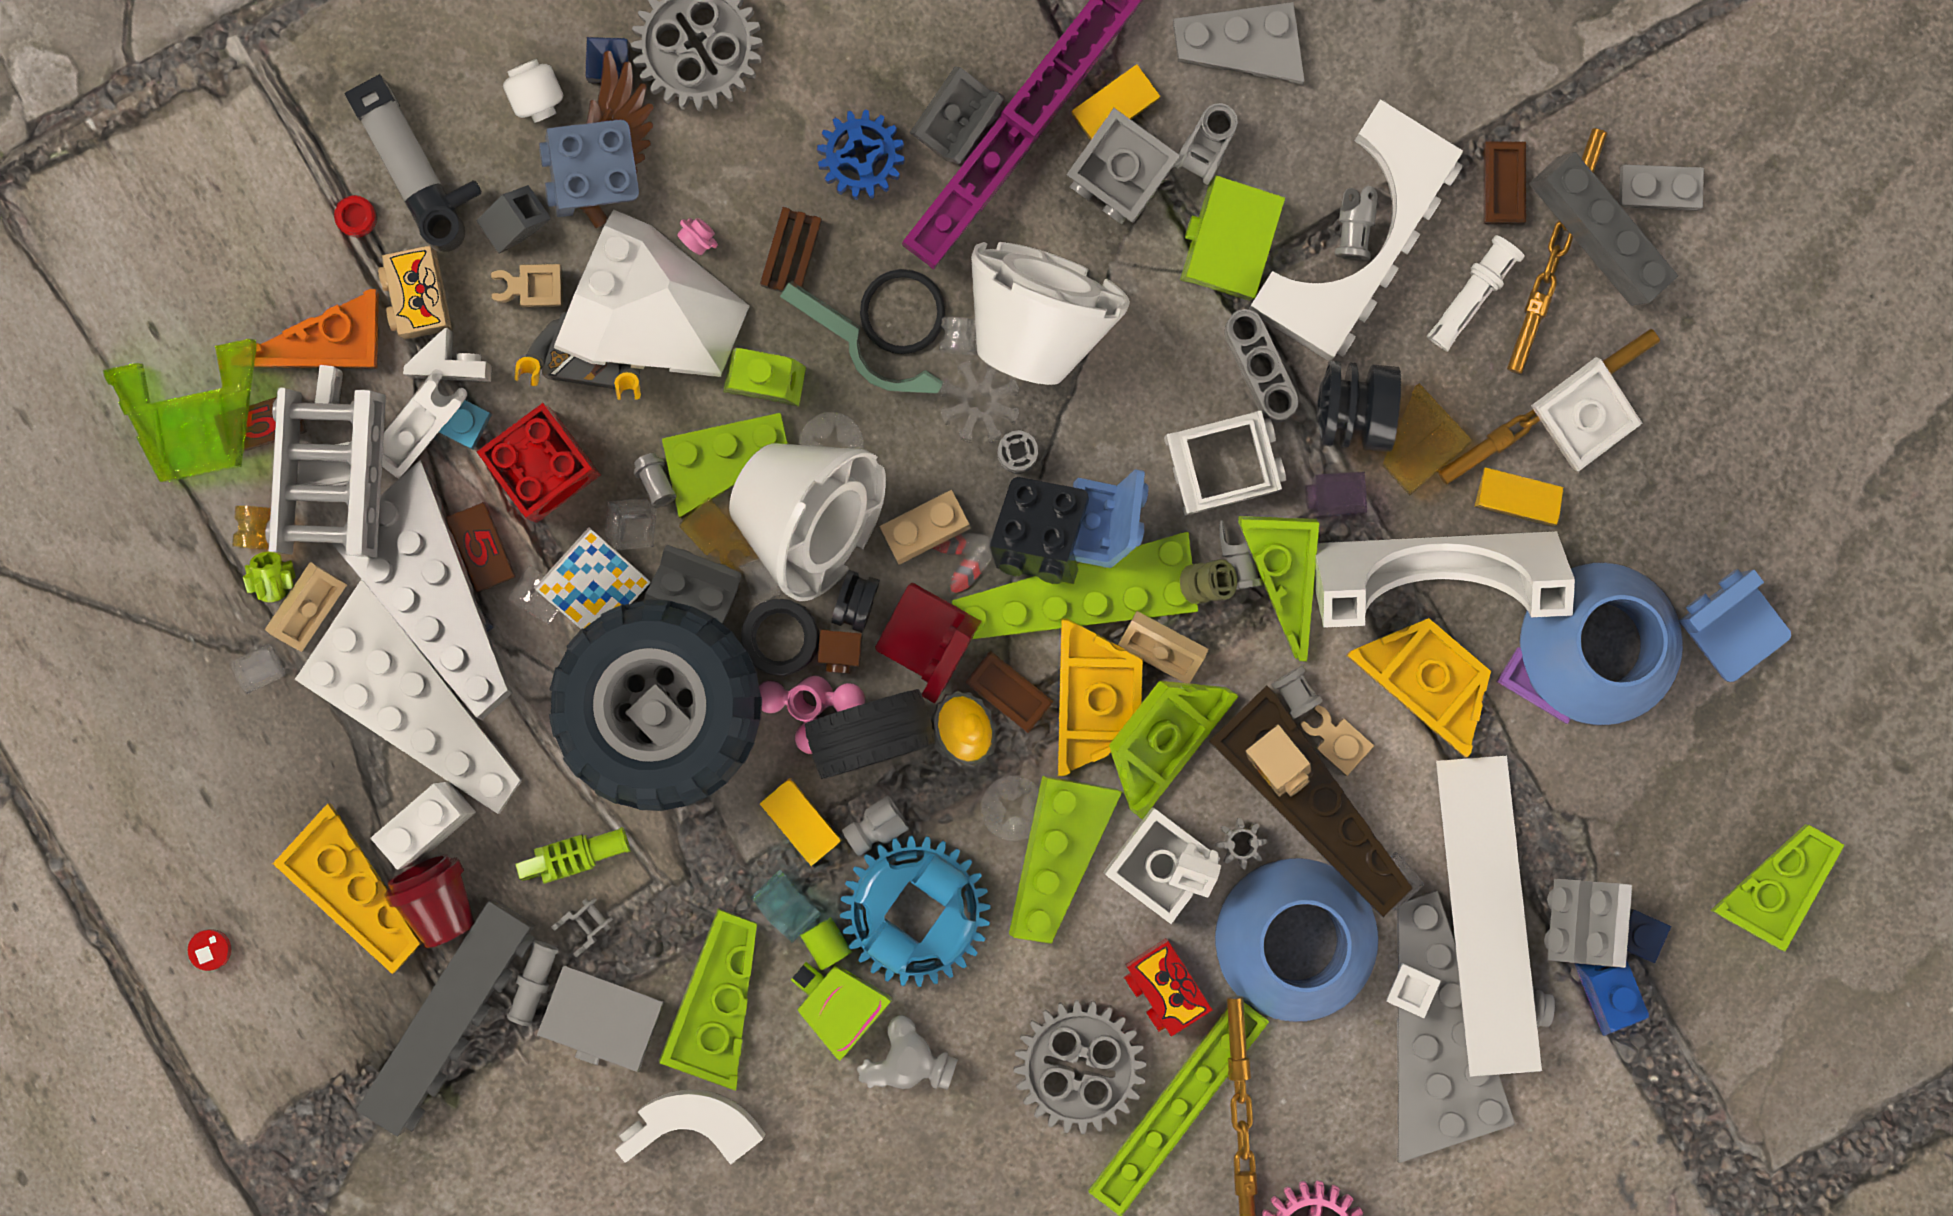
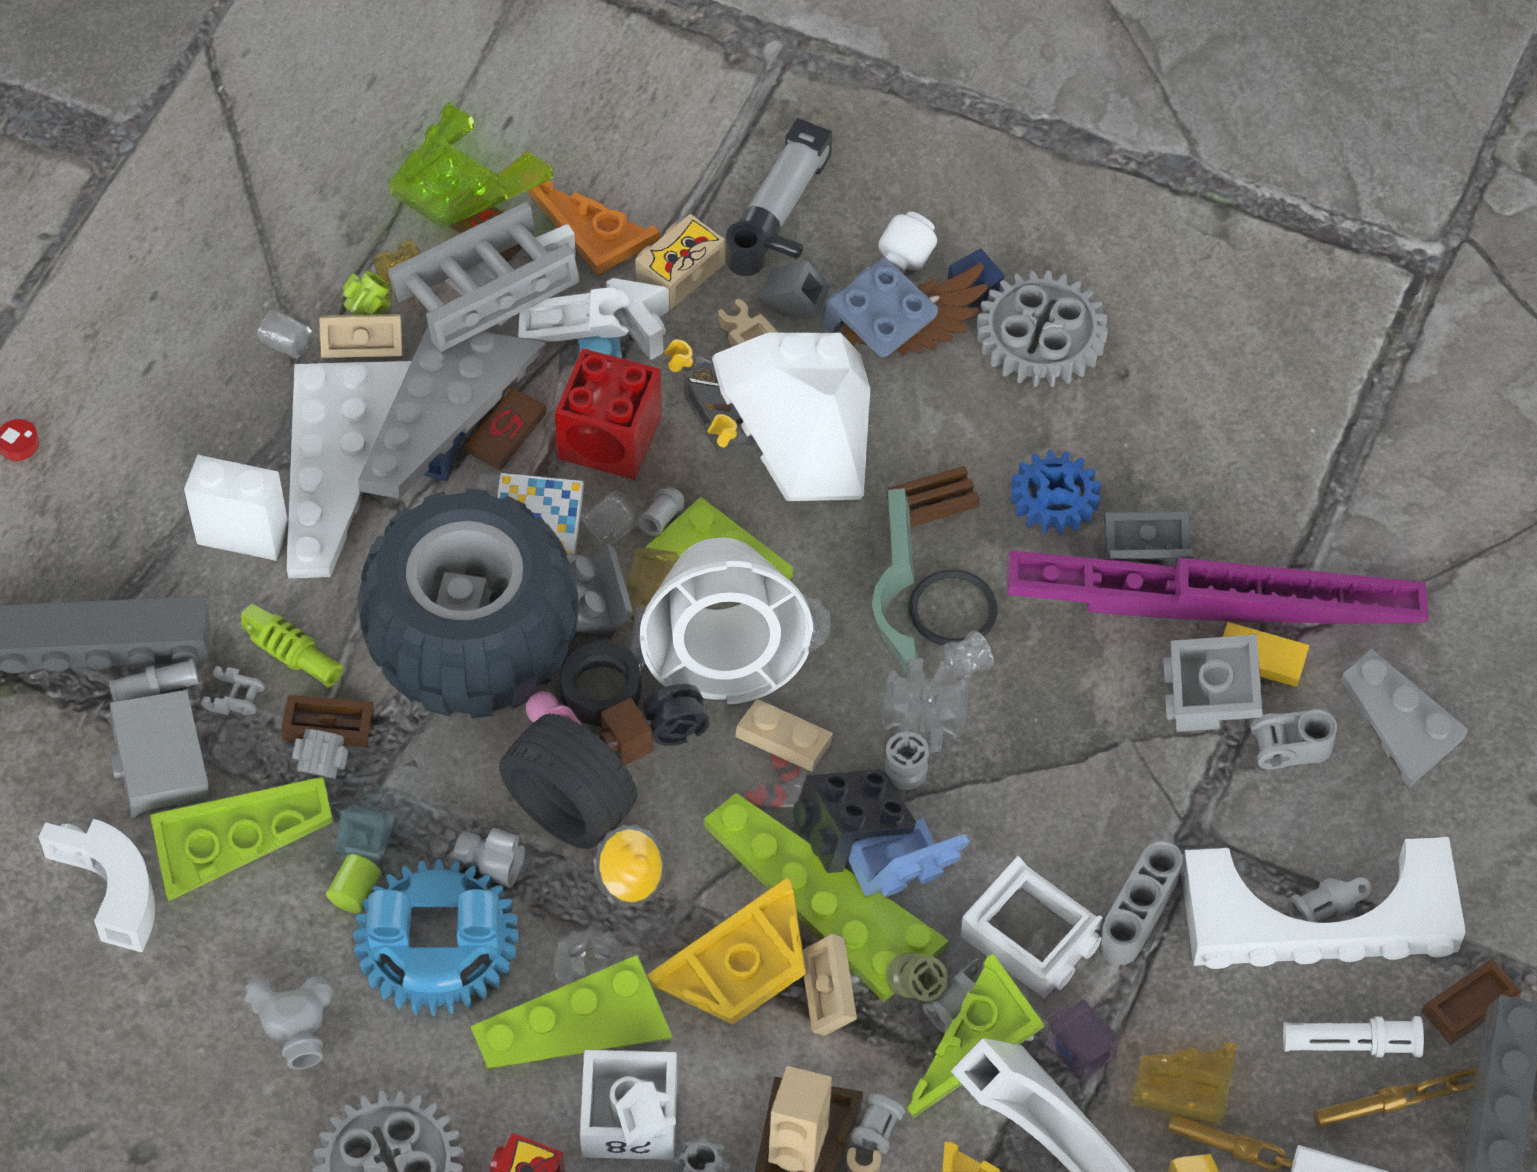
camera: 50 degrees right, 30 degrees down
(343, 883) = (140, 503): yellow wing -> none
(355, 216) = (707, 193): red tile -> none
(432, 899) = (176, 556): dark red piece -> none
(684, 842) = (354, 731): none -> reddish brown tile
(695, 898) = (320, 754): none -> light grey gear
(697, 235) = (888, 420): bright pink plate -> none
(764, 376) = (806, 520): lime torso -> none
(800, 821) = (450, 800): yellow slope -> none
(838, 1006) = (302, 929): lime torso -> none
(927, 637) = (688, 791): dark red bracket -> none
(1009, 692) = (691, 892): reddish brown tile -> none
(1038, 311) = (1035, 681): white cone -> none
(1164, 738) = (749, 1032): lime wing -> none
(1231, 238) = (1232, 807): lime container -> none
(1359, 406) = (1173, 994): black wheel -> none

